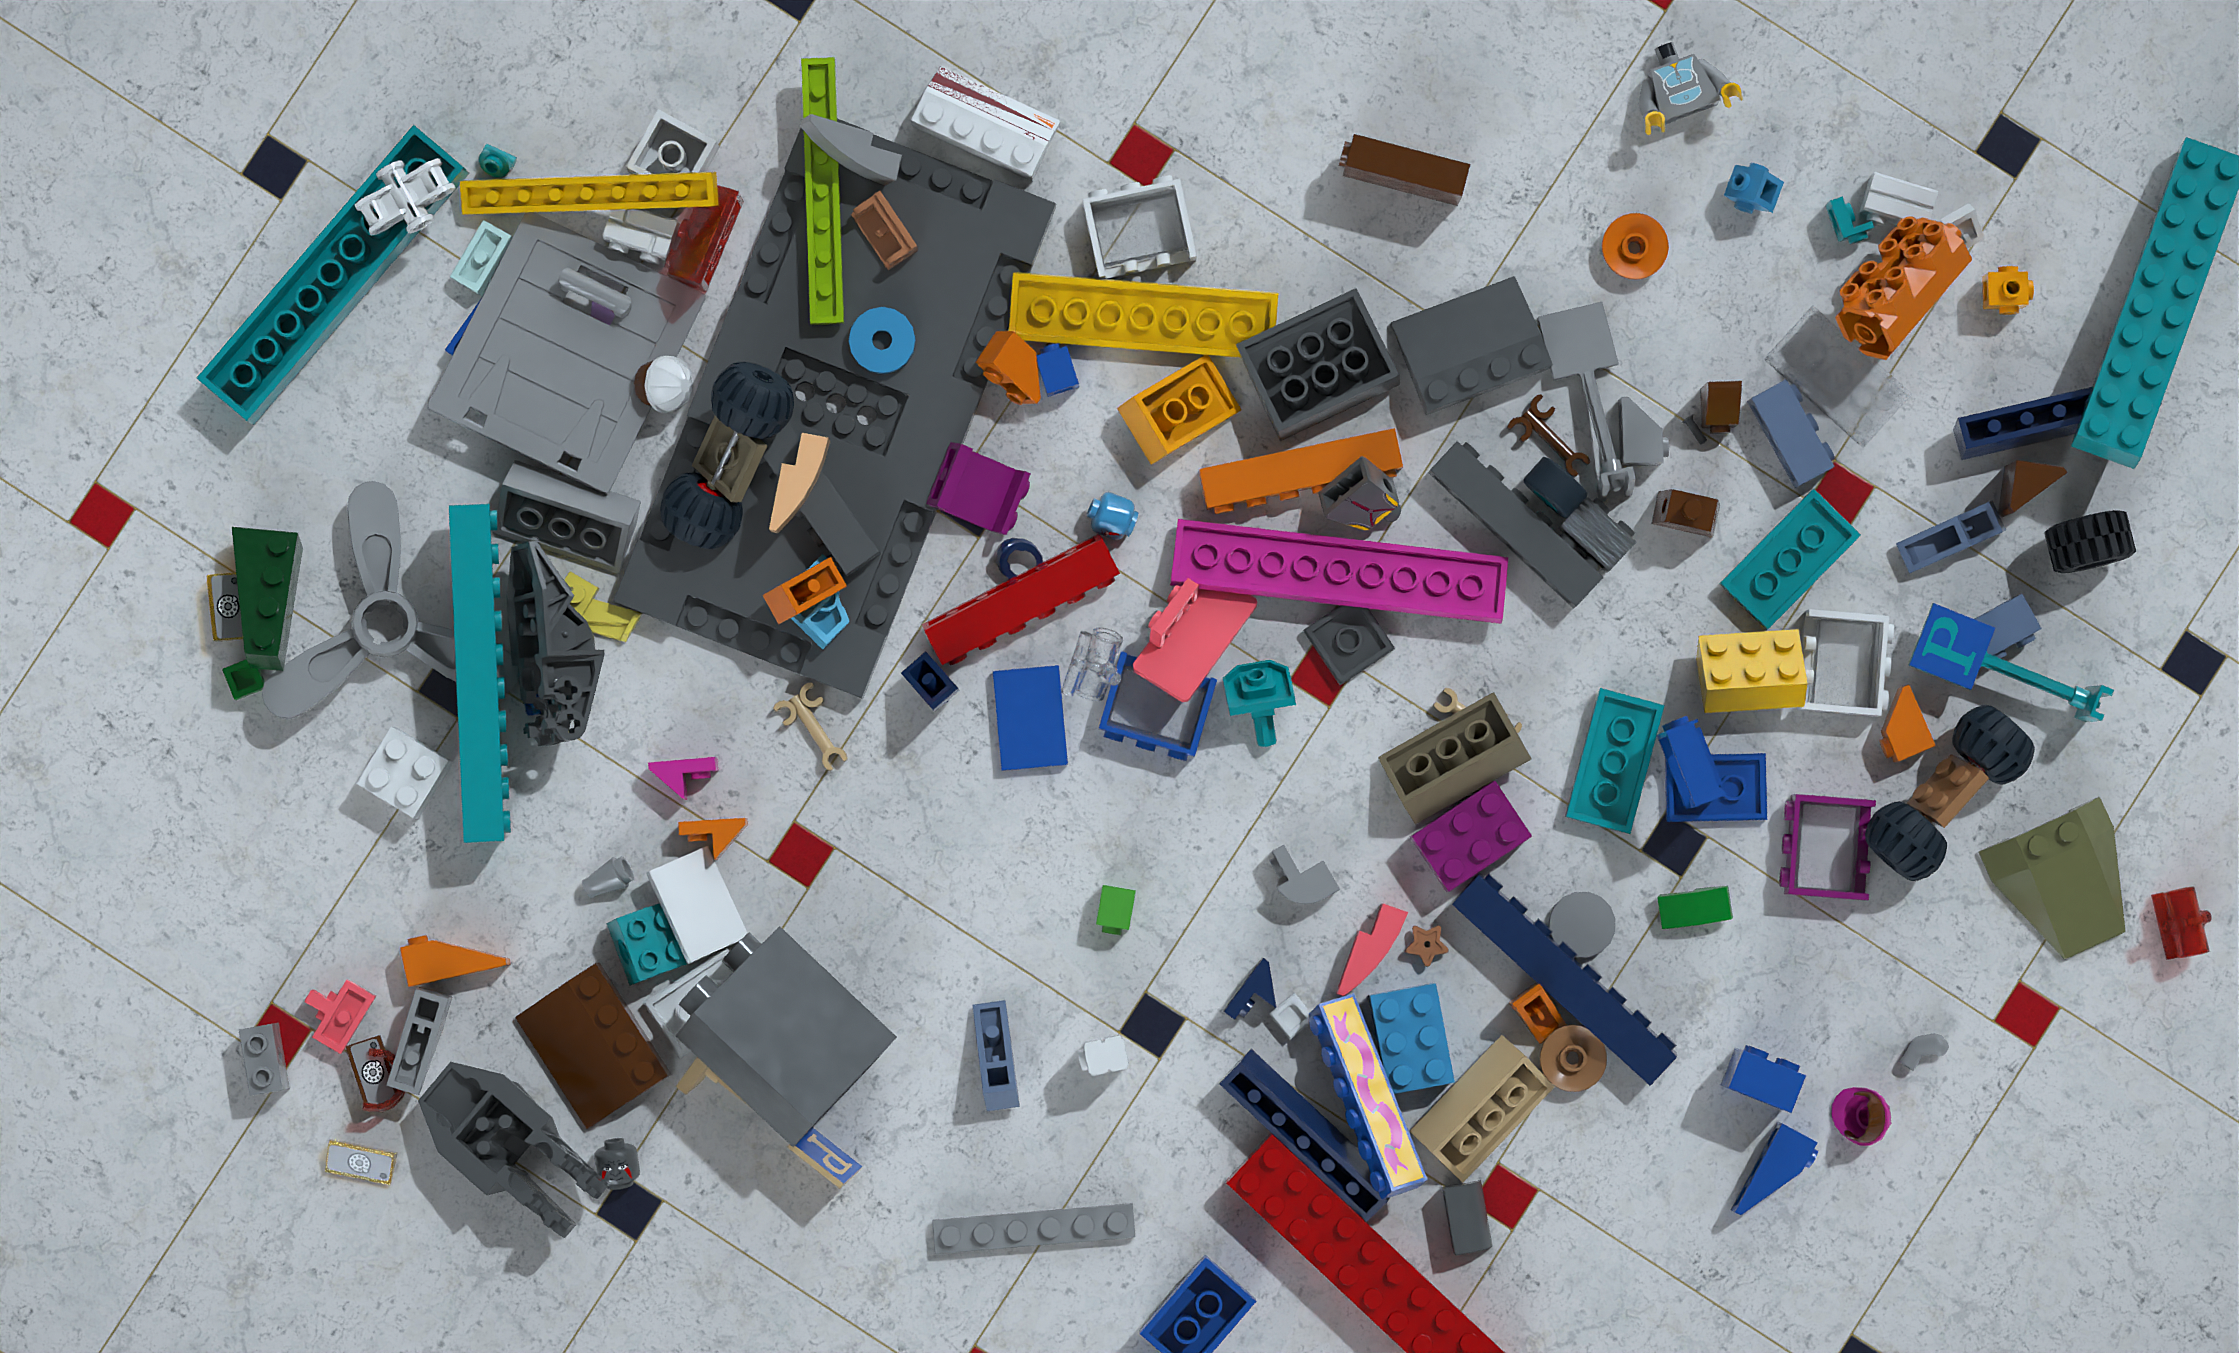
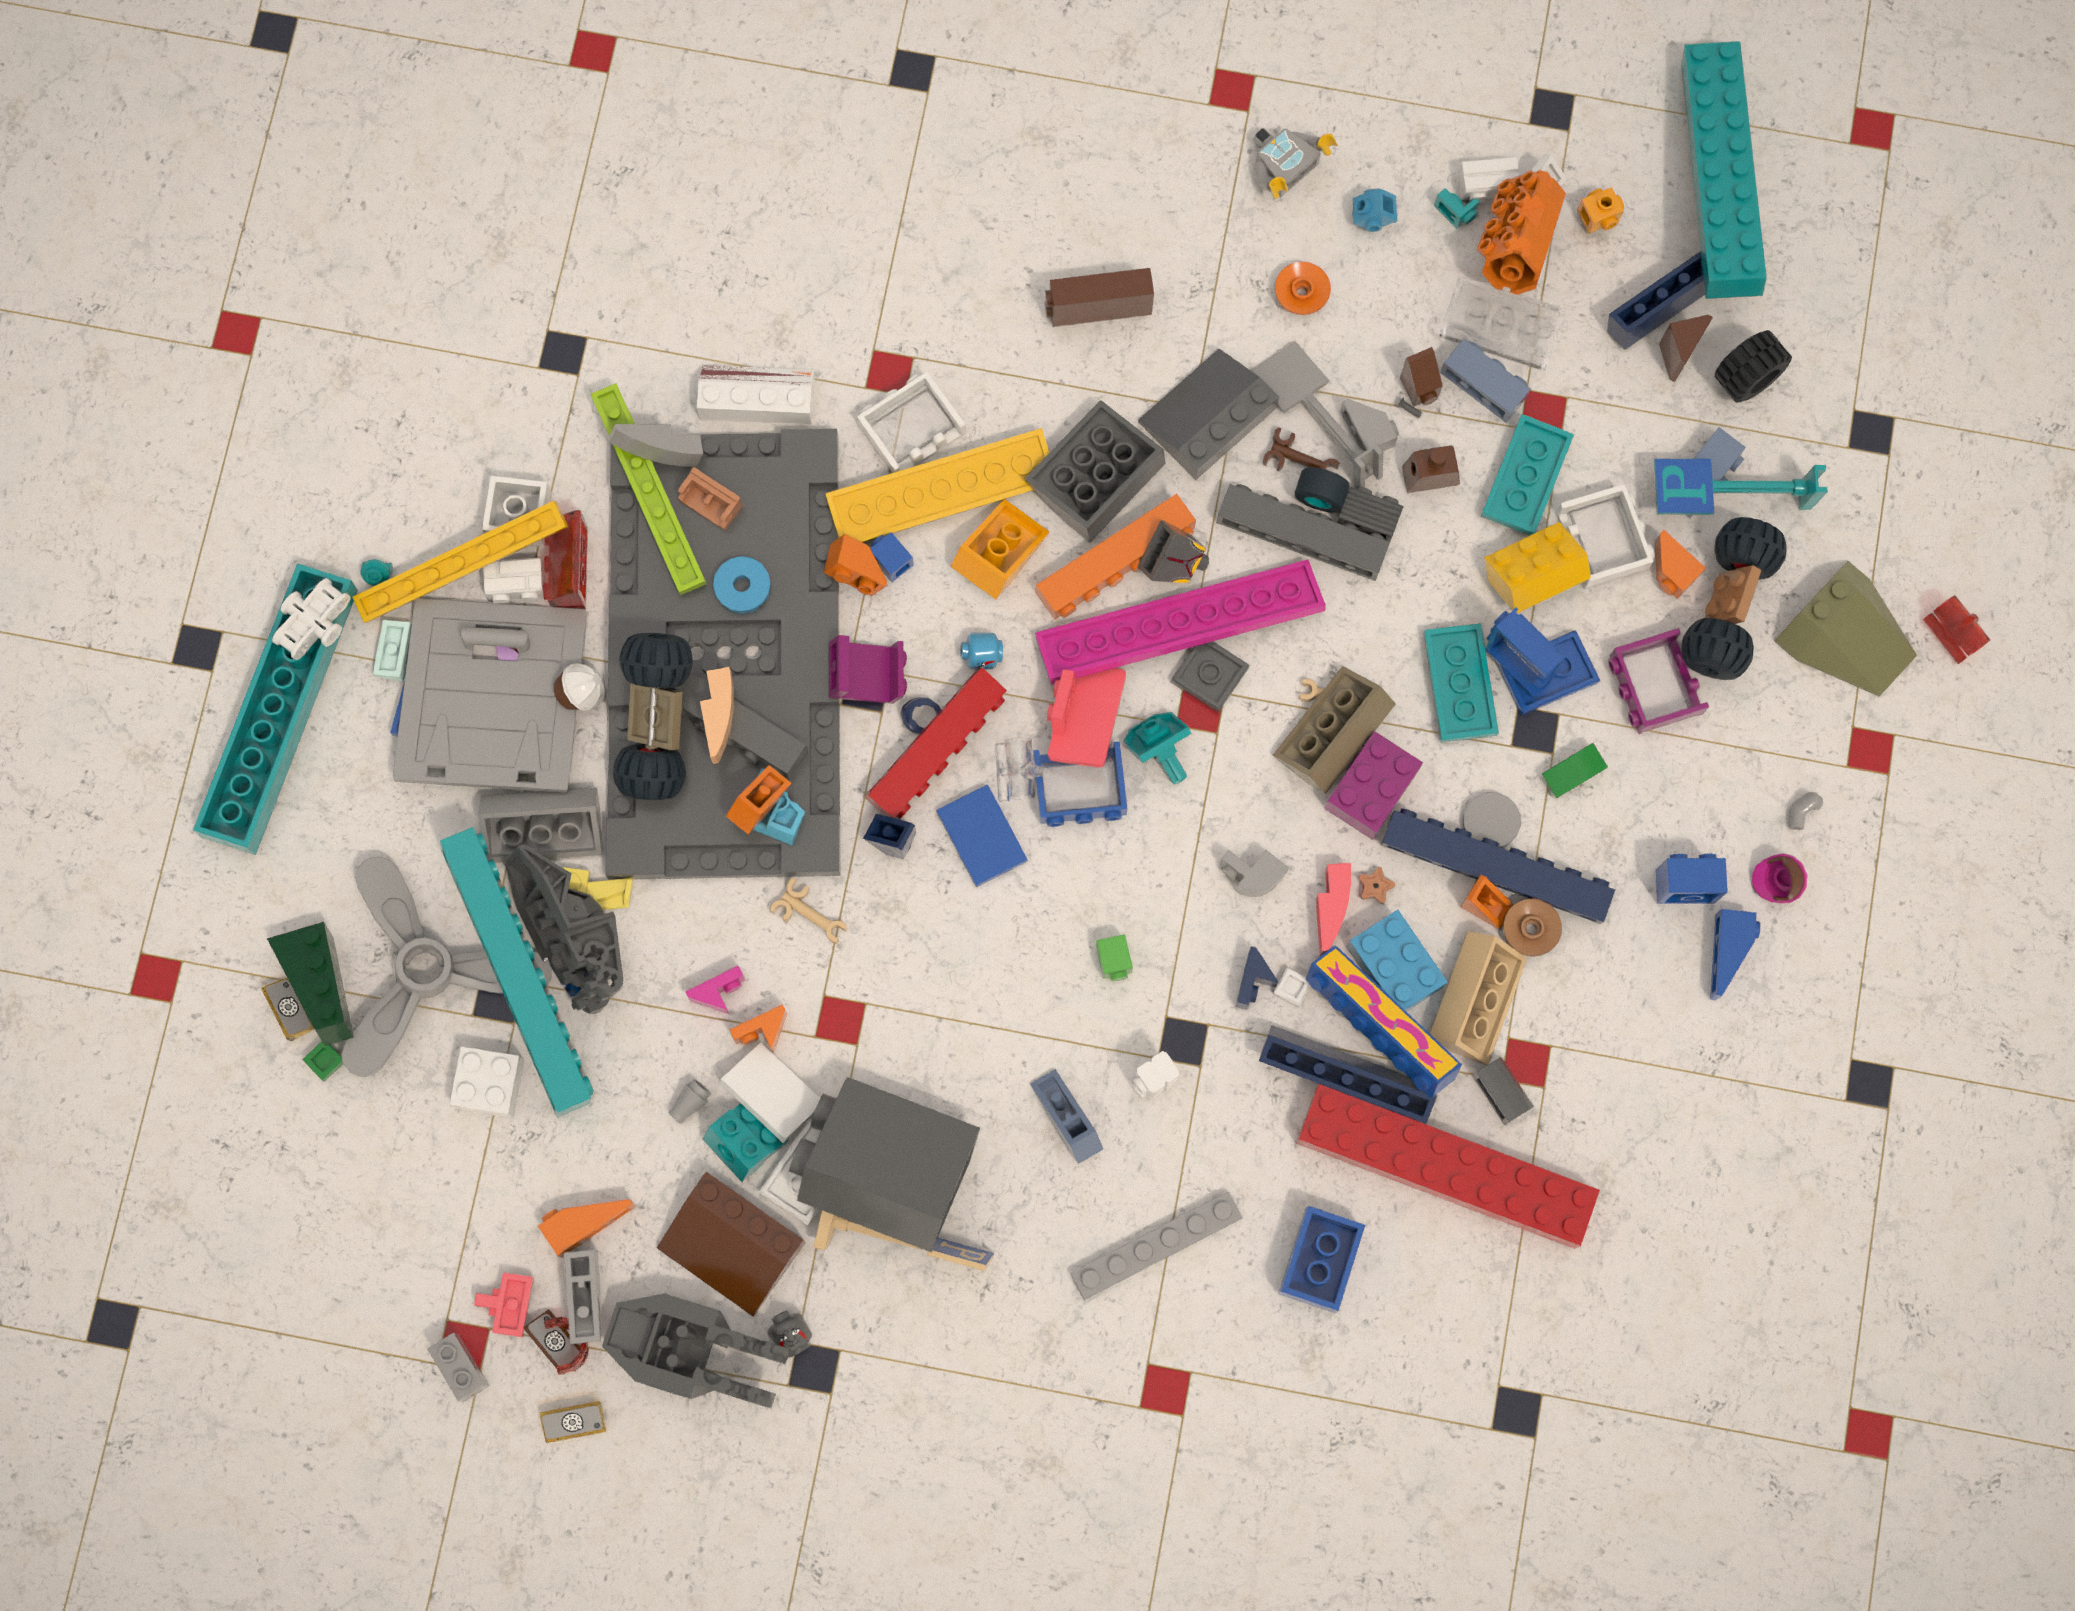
camera: 25 degrees left, 10 degrees down
(1950, 536) = (1643, 409): sand blue slope -> none

